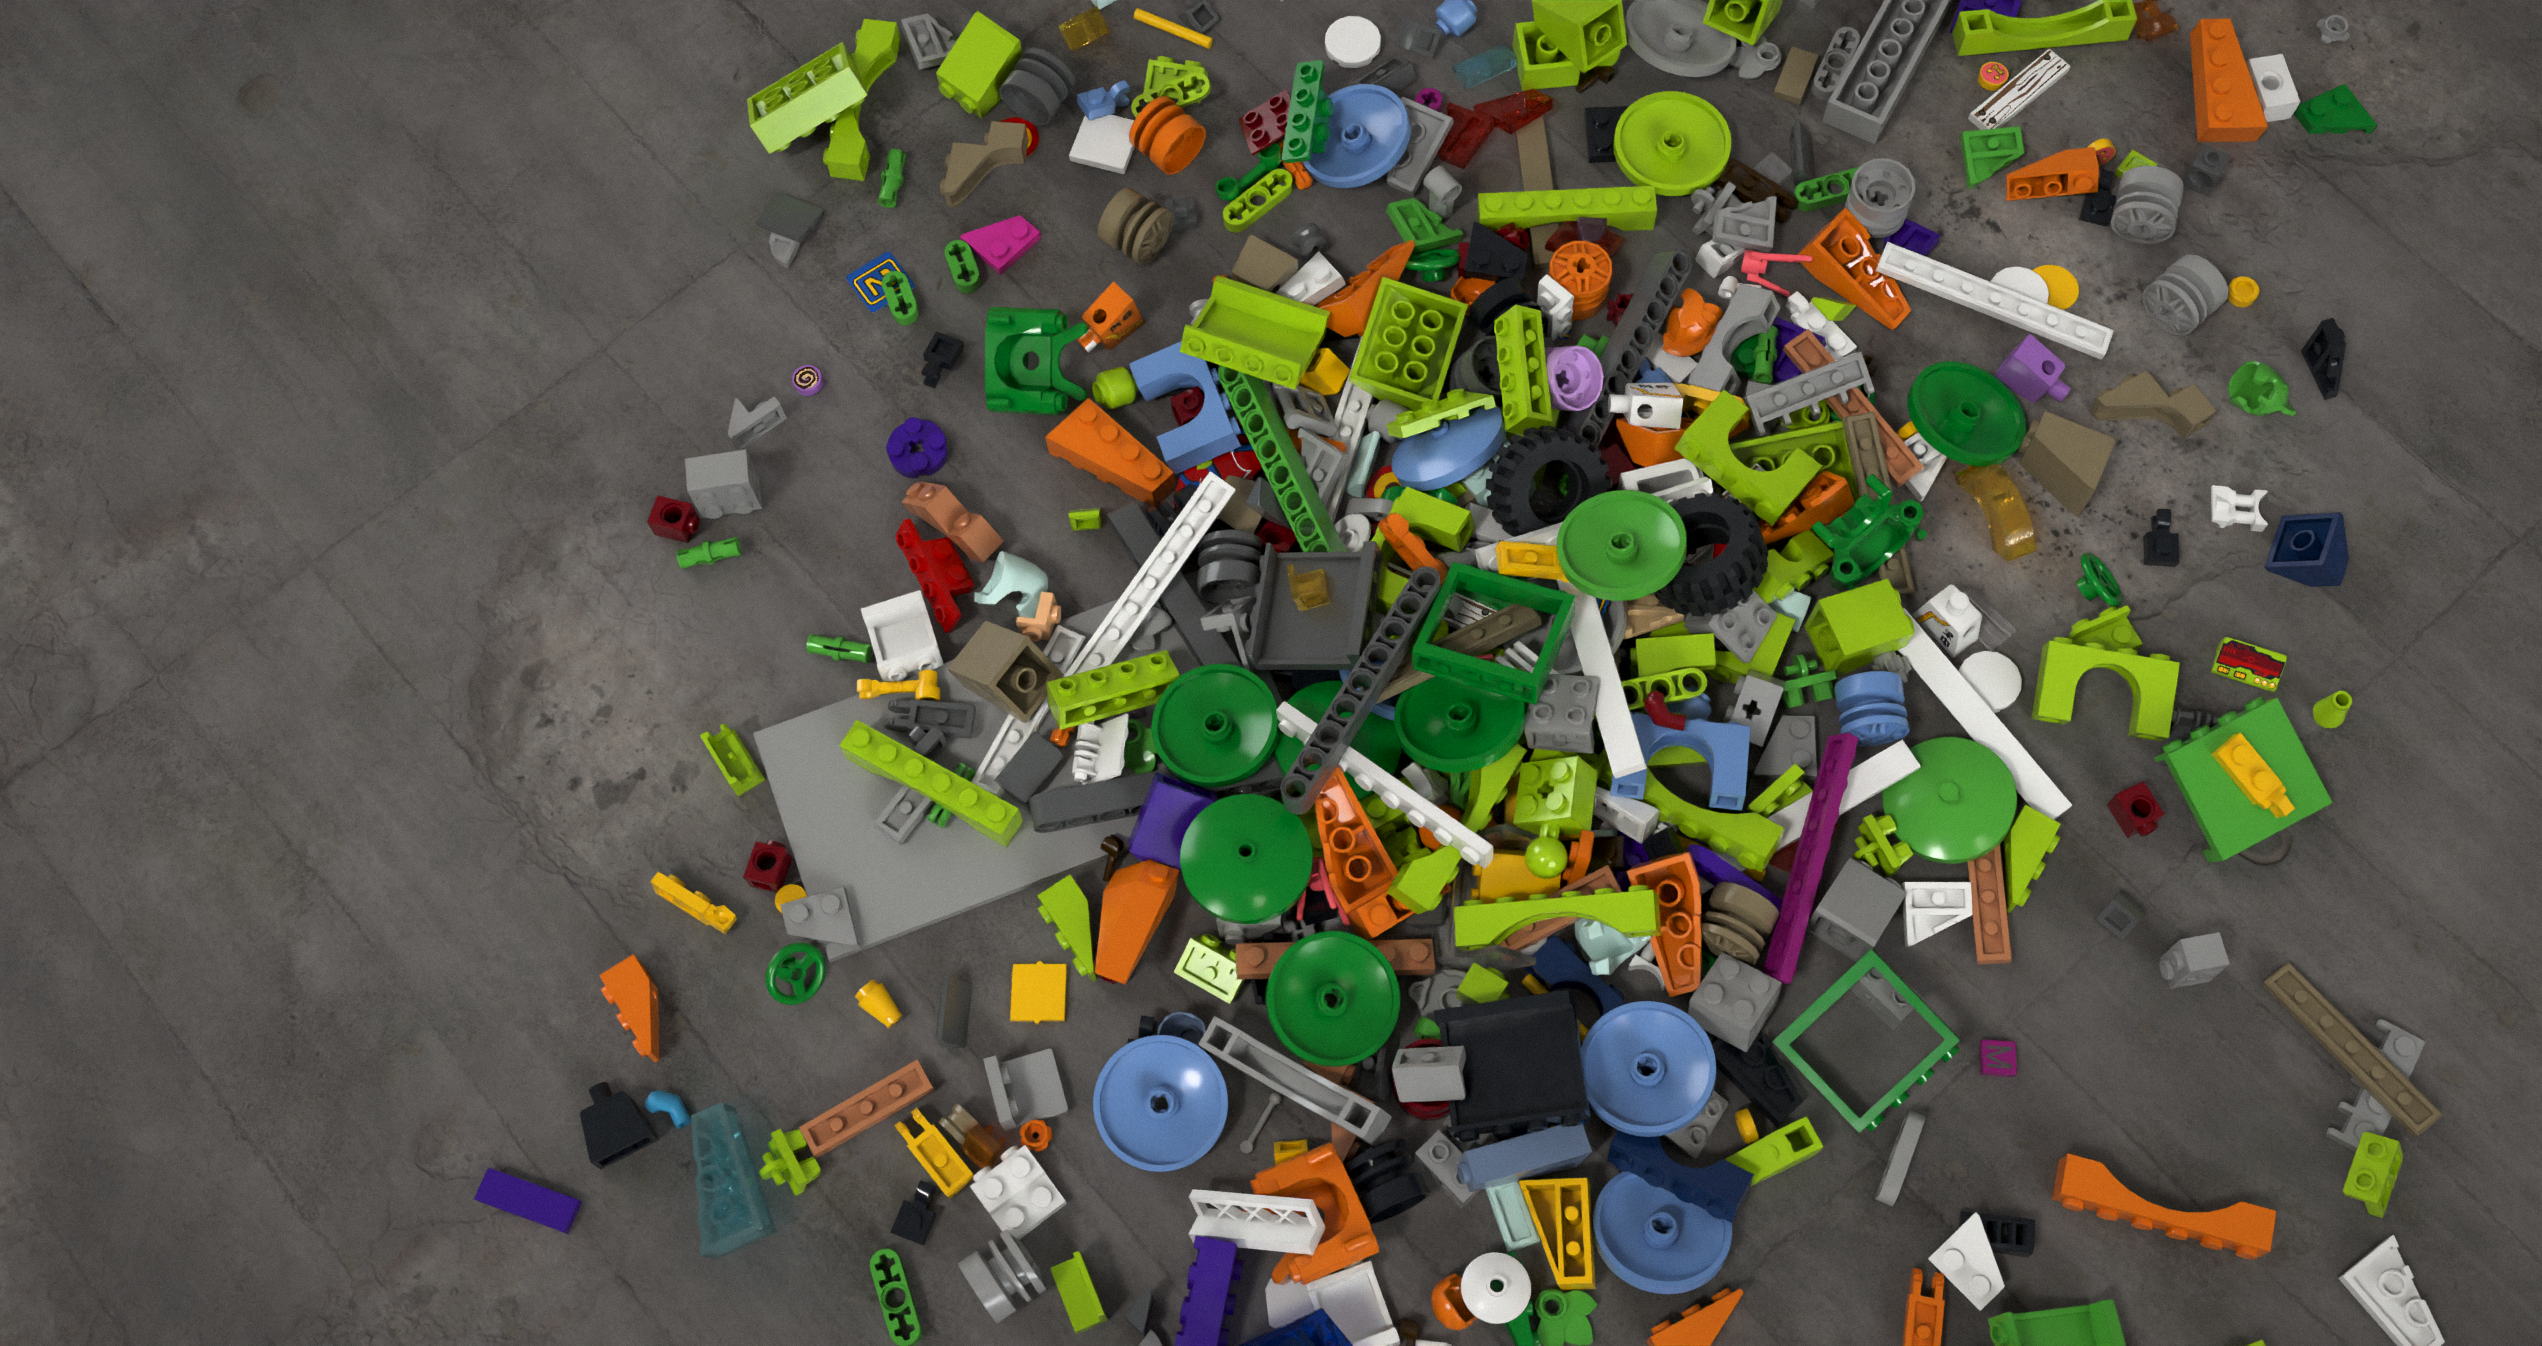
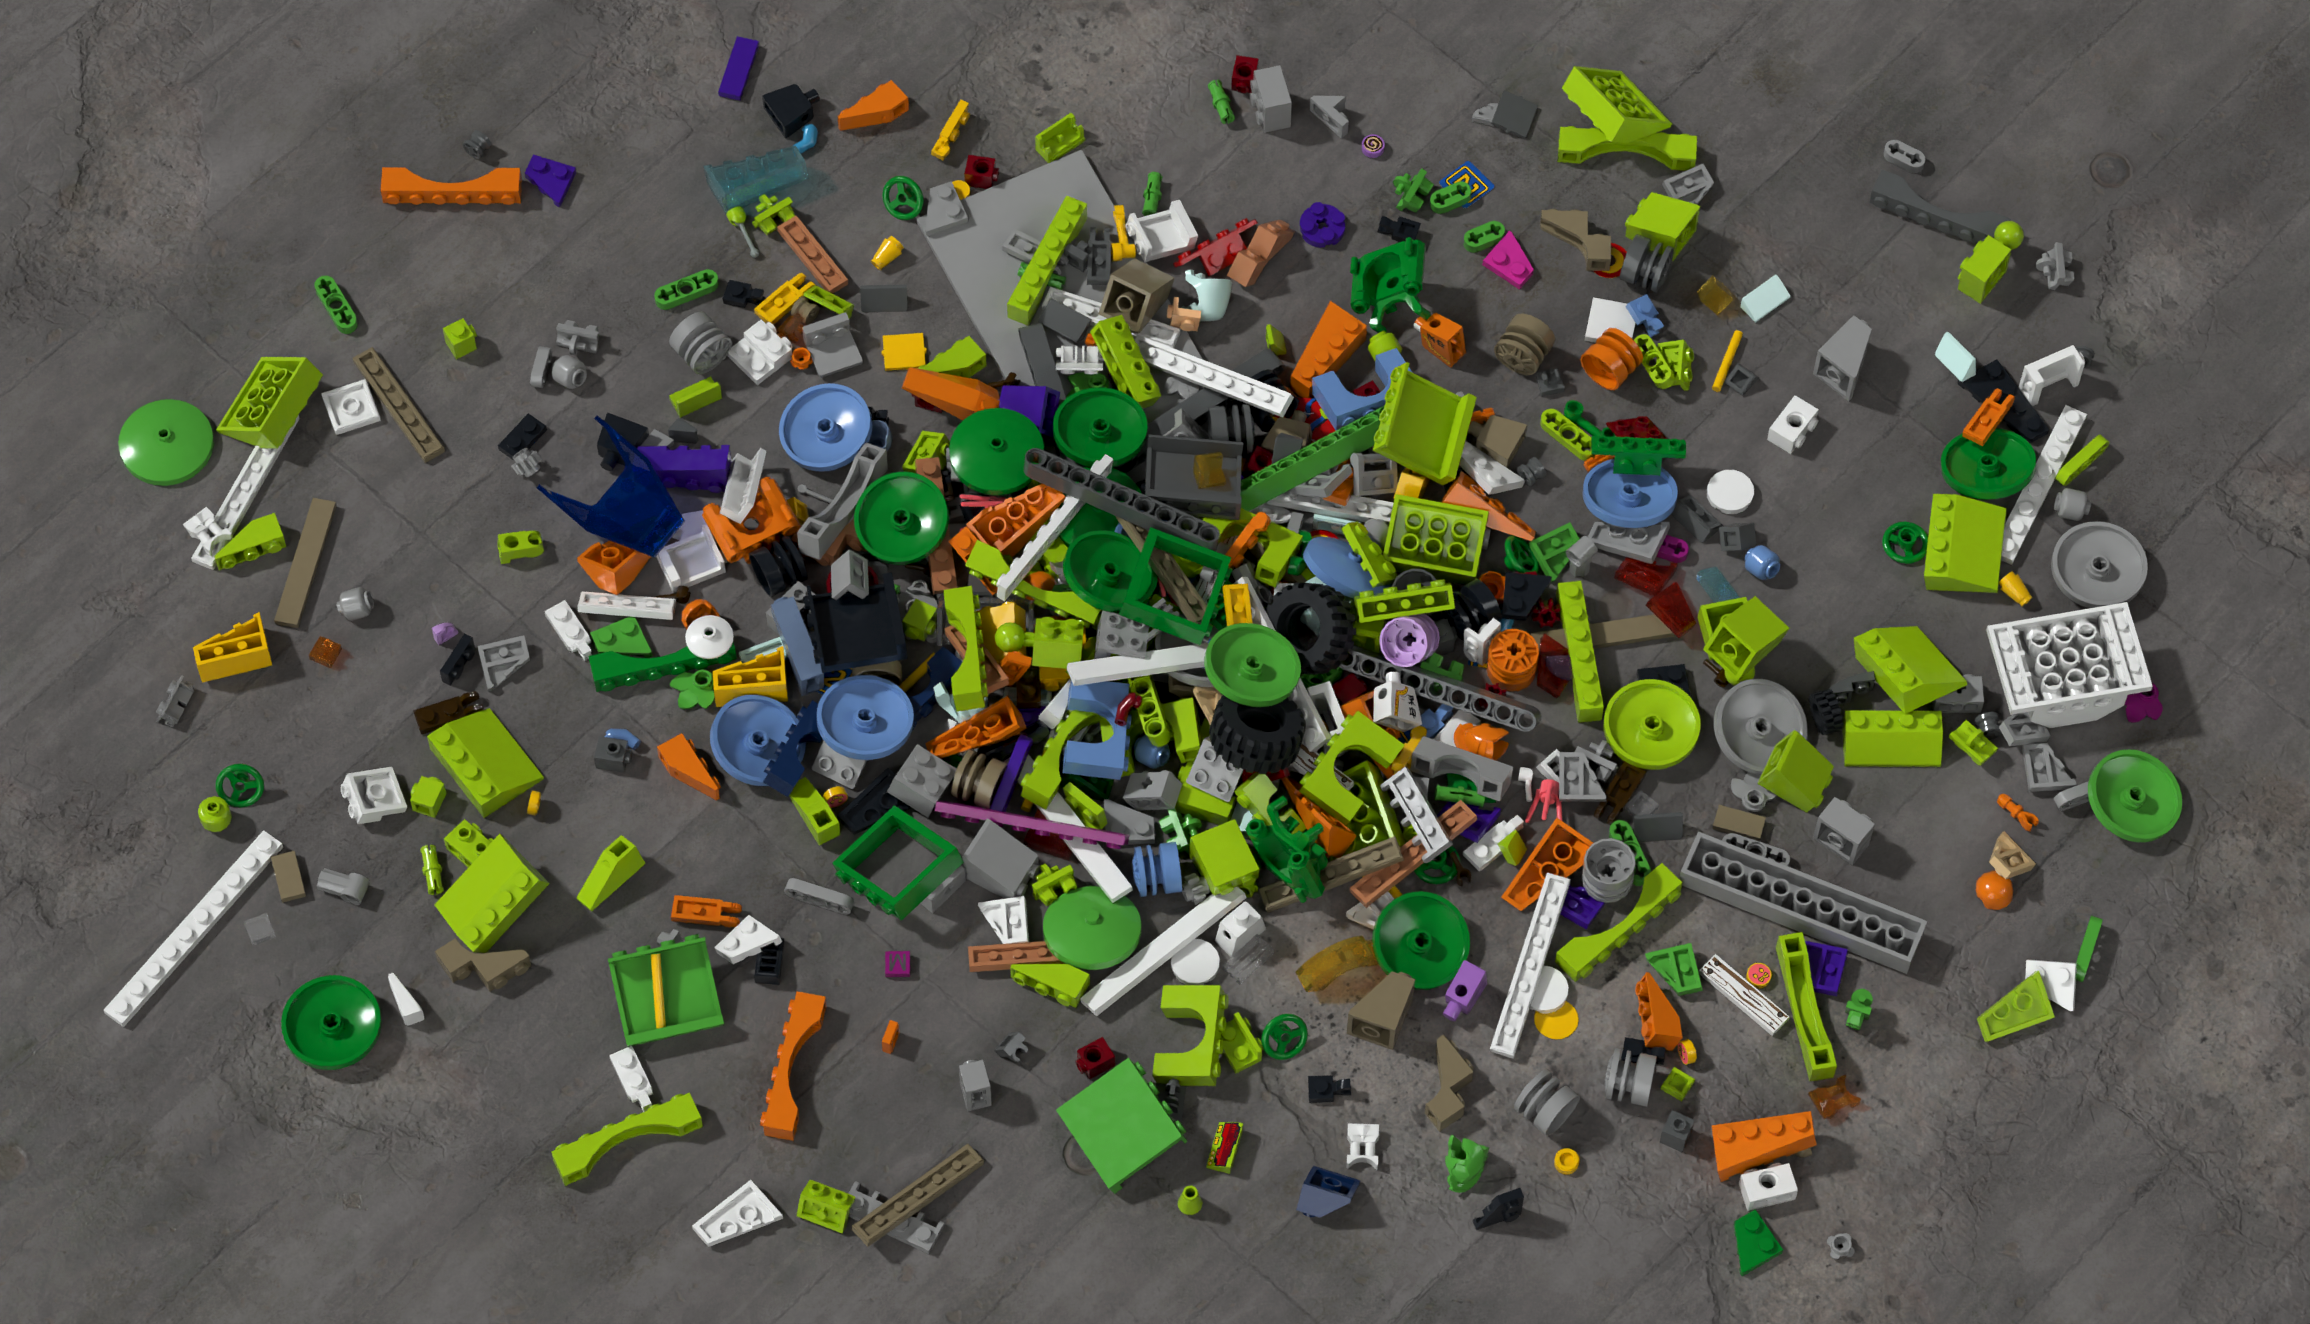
camera: 80 degrees right, 5 degrees down
(787, 1214) = (737, 218): none -> hinge
(883, 339) = (1418, 183): none -> bright green hips
(891, 178) = (1557, 178): bright green pin -> none
(951, 1087) = (829, 300): none -> lime slope
(1975, 245) = (1583, 953): none -> lime arch
(2114, 1072) = (890, 1037): none -> orange tile
(2253, 775) = (1119, 1120): yellow hinge -> none

